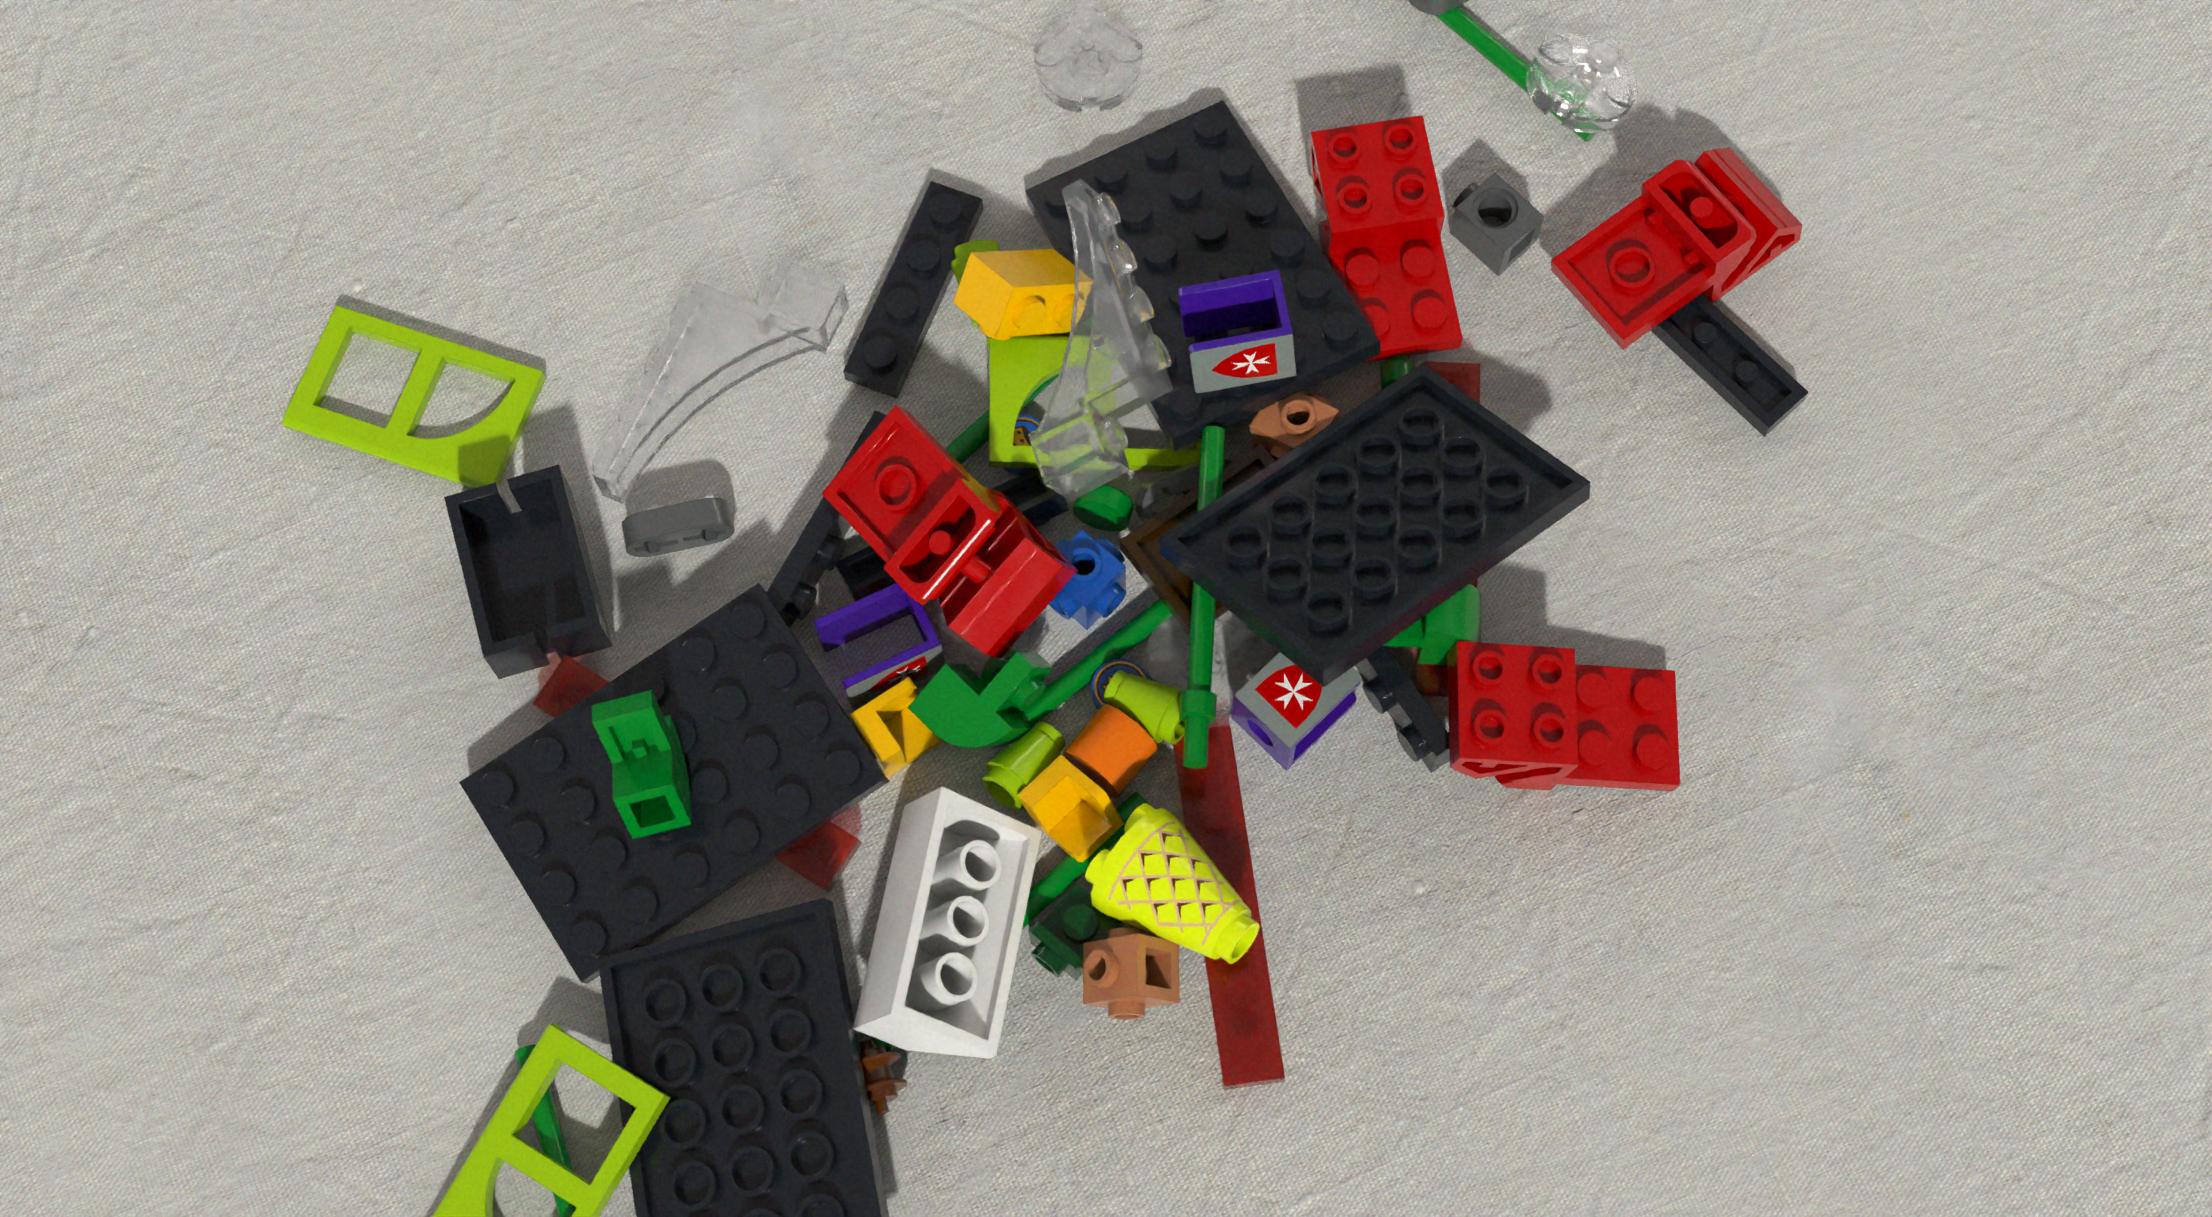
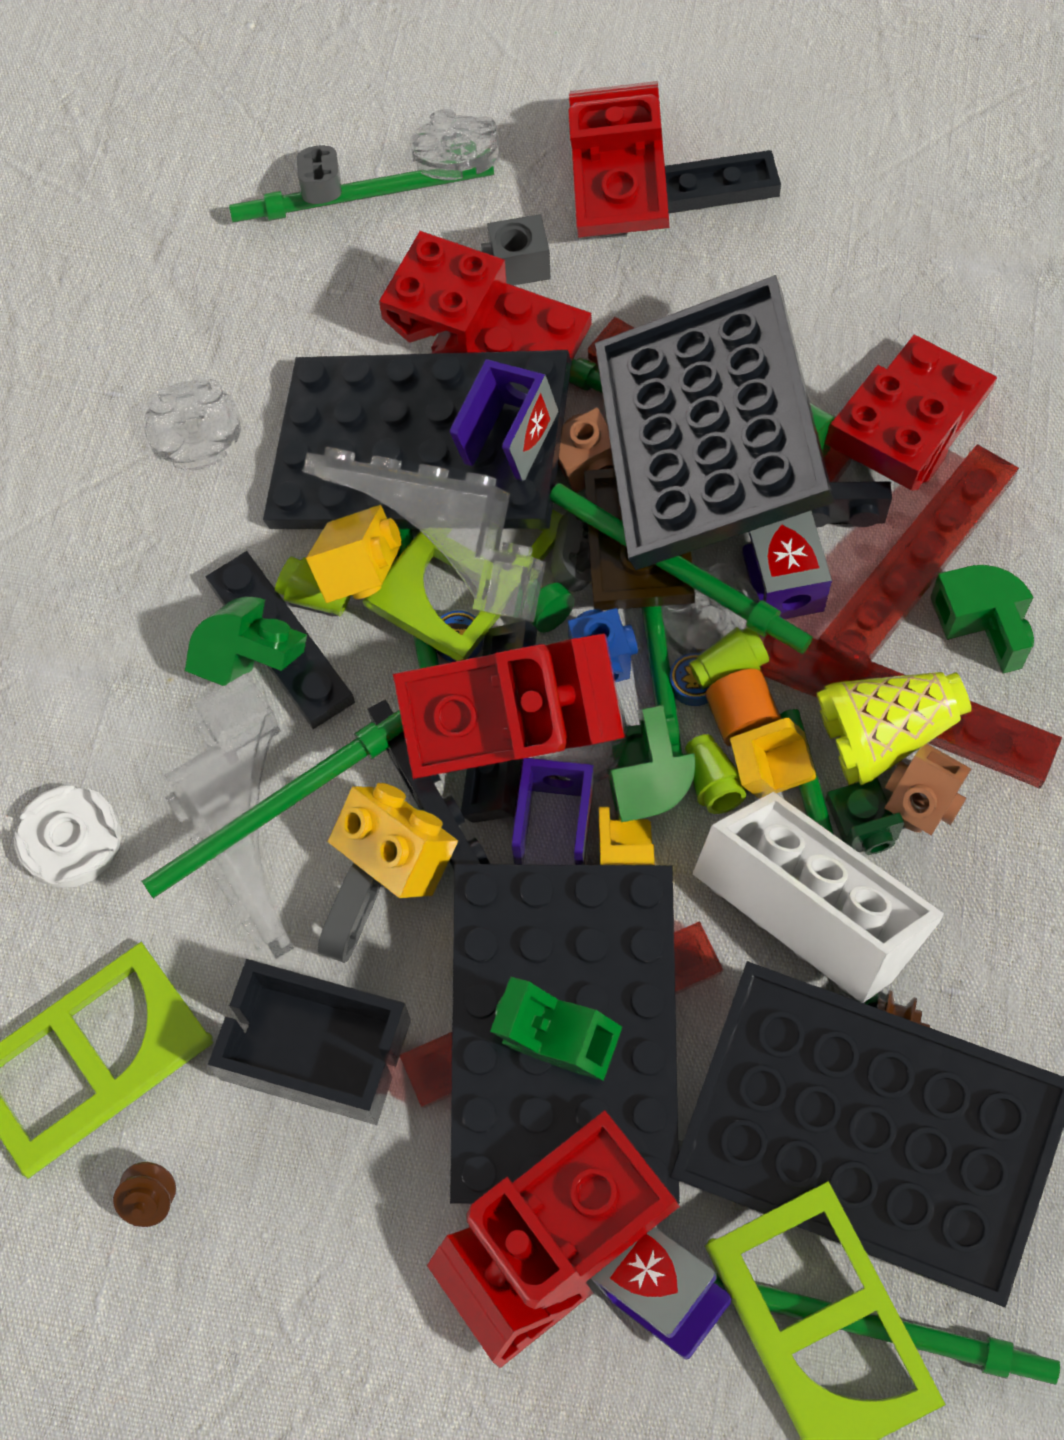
camera: 55 degrees left, 5 degrees down
(319, 527) = (144, 1194): none -> reddish brown wheel
(459, 874) = (547, 1236): none -> red piece
(485, 1005) = (665, 1291): none -> piece
(603, 243) = (68, 836): none -> white tile
(757, 517) = (393, 840): none -> yellow brick
(836, 432) = (369, 742): none -> green bar
(874, 256) = (237, 636): none -> green brick
(1392, 916) = (987, 601): none -> green brick
(1394, 823) = (916, 559): none -> clear red plate

